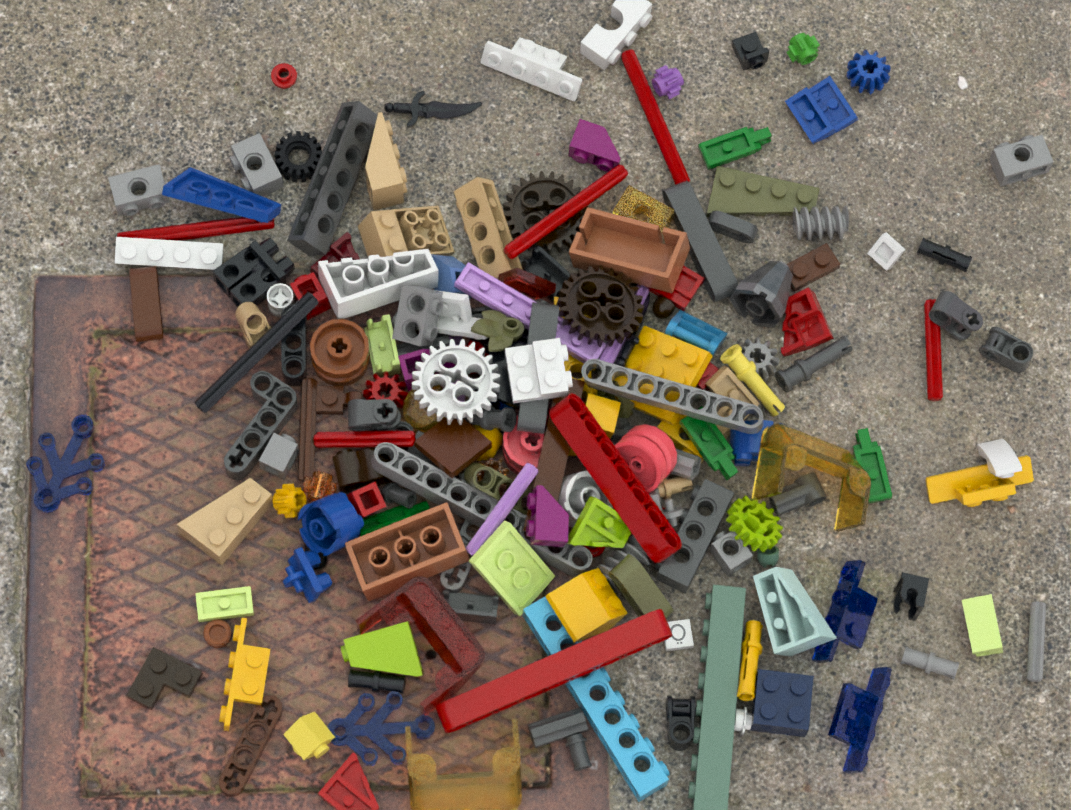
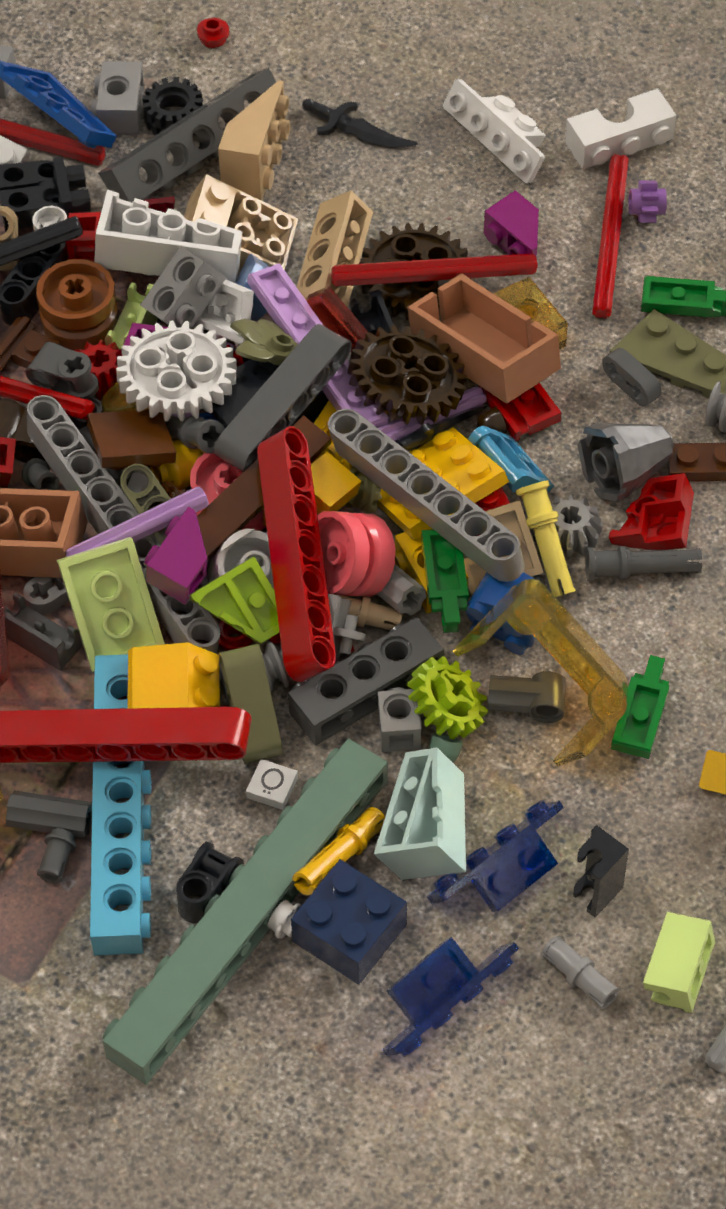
camera: 35 degrees right, 15 degrees down
(538, 371) = (274, 389): white plate -> none
(704, 246) = (582, 372): dark grey beam -> none

